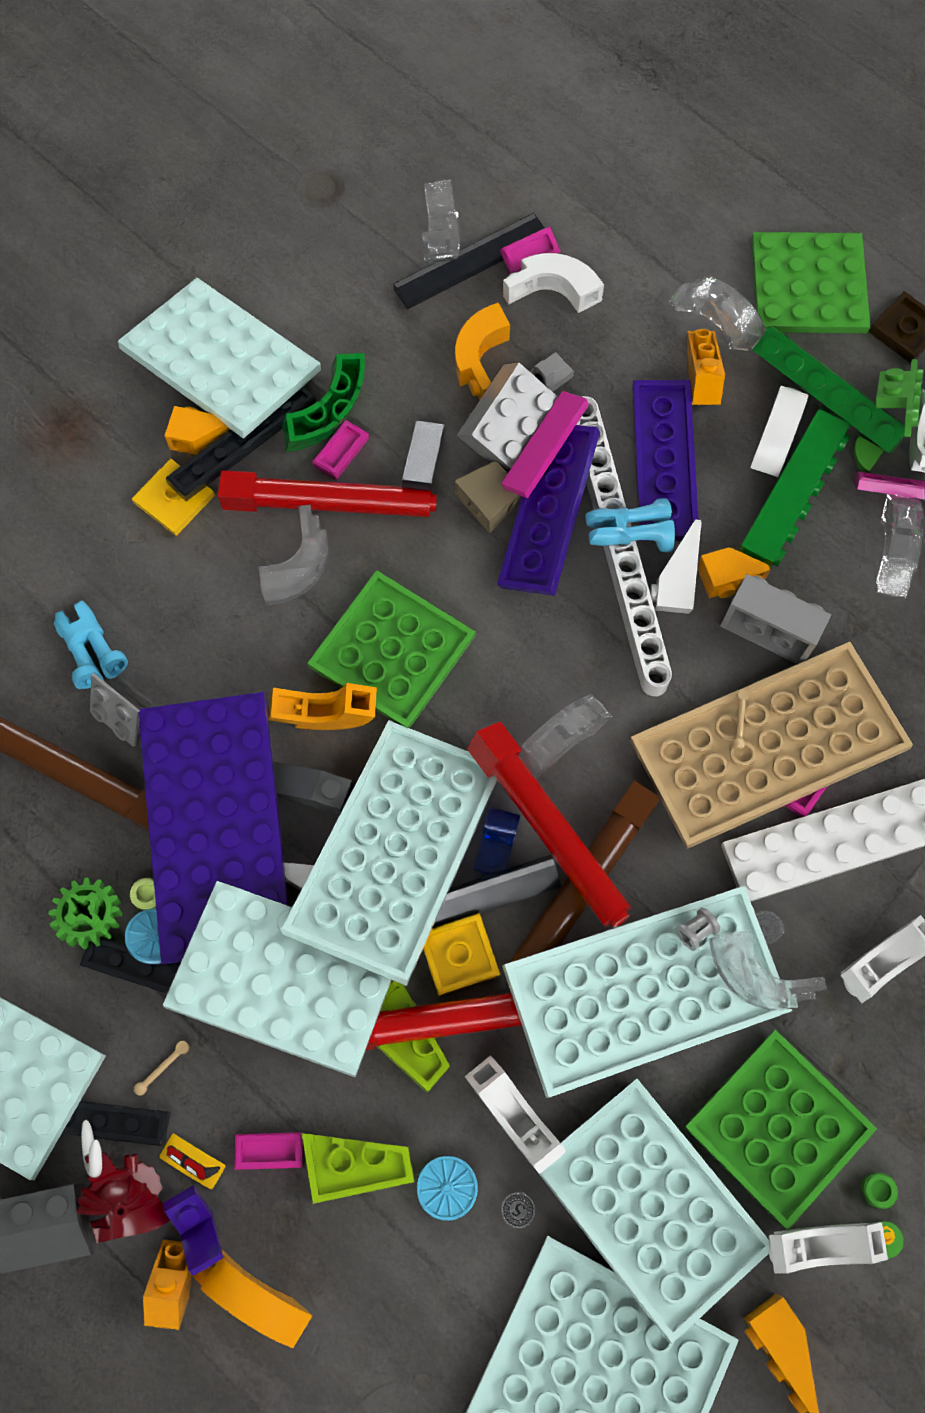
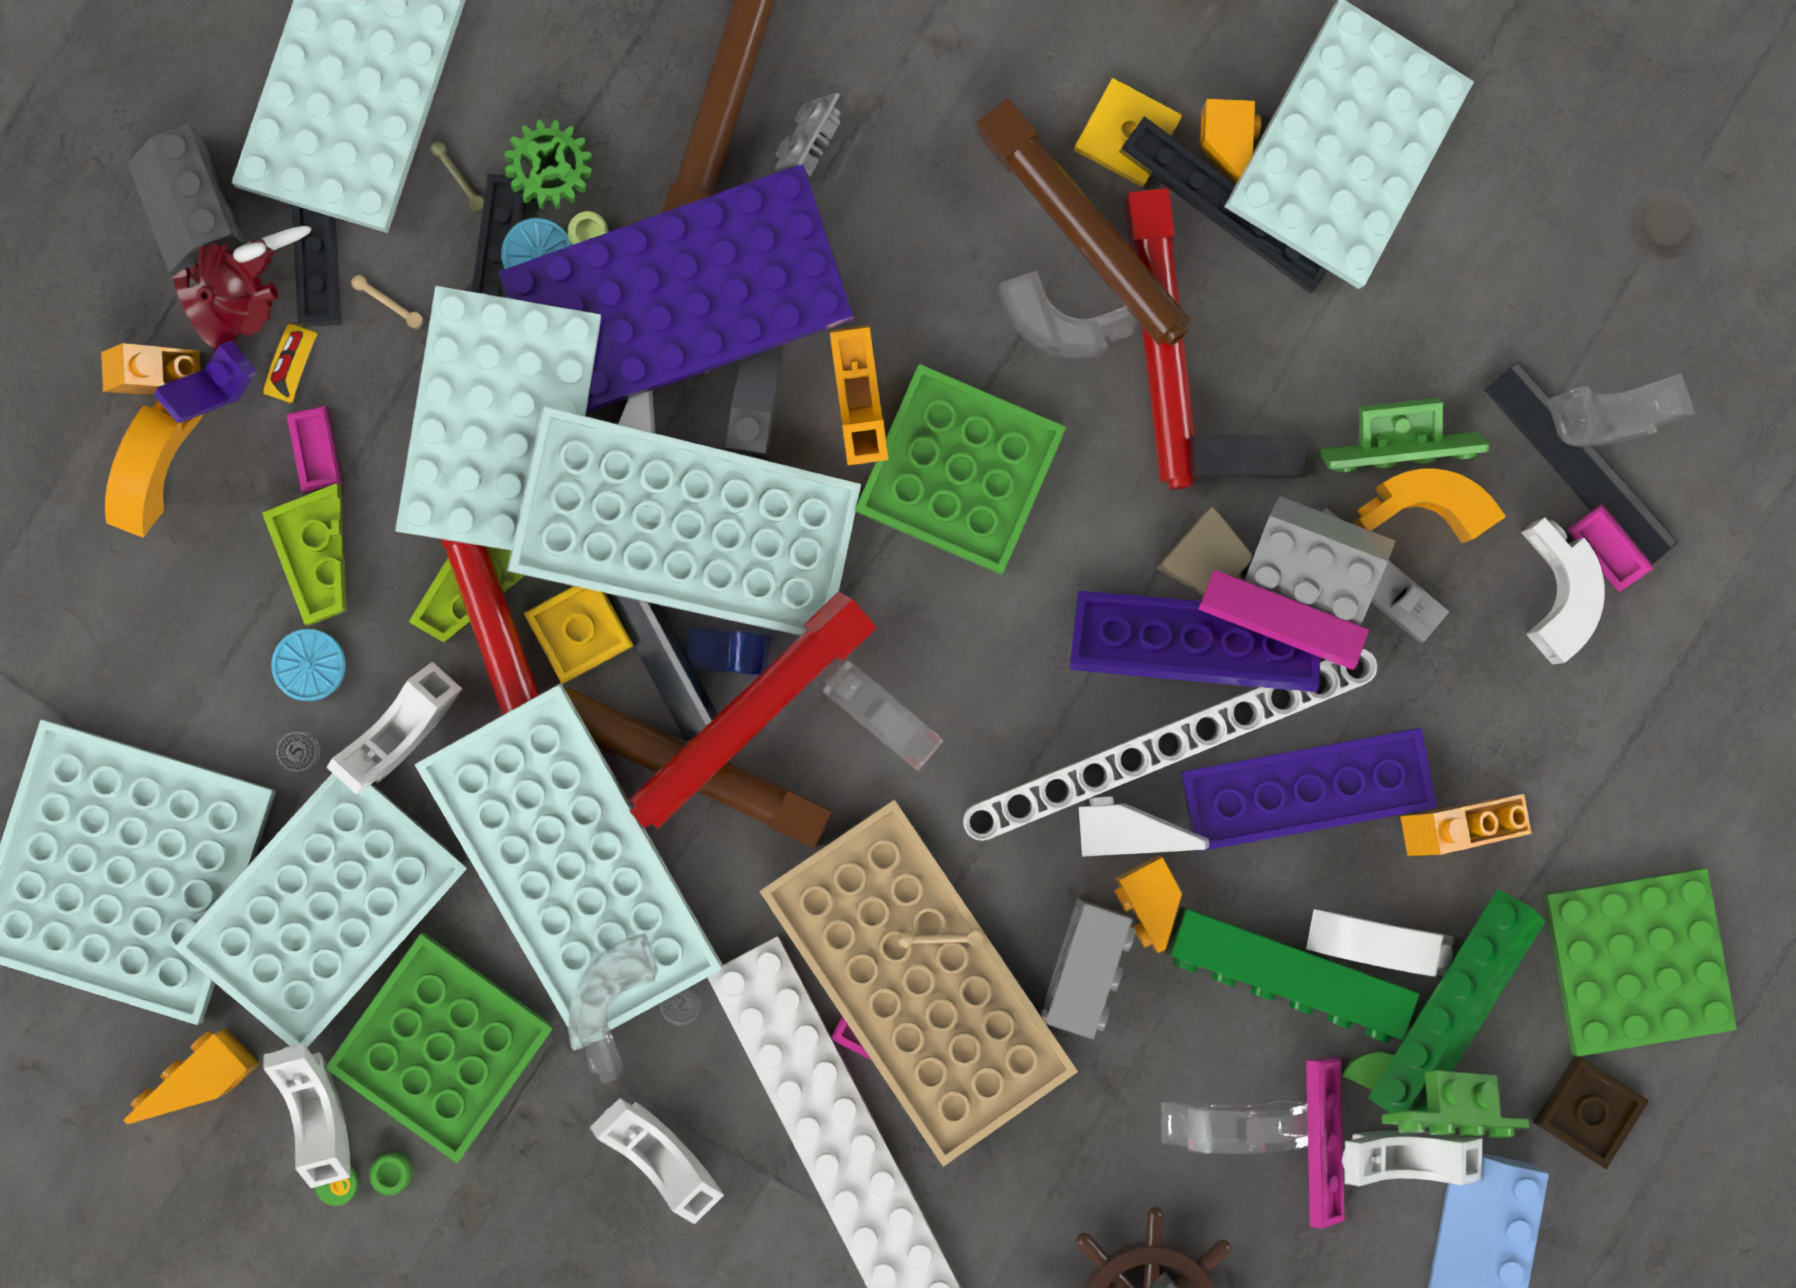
camera: 80 degrees right, 15 degrees up
(77, 637) = (902, 57): medium azure piece -> none
(100, 979) = (439, 150): none -> olive hinge
(162, 568) = (1020, 151): none -> reddish brown brick
(324, 417) = (1296, 319): green brick -> none
(340, 449) = (1242, 342): dark pink tile -> none
(428, 357) = (1402, 433): none -> bright green bracket
(613, 528) = (1190, 737): medium azure piece -> none
(707, 924) = (648, 916): light grey bush -> none
(724, 307) = (1557, 839): clear arch -> none

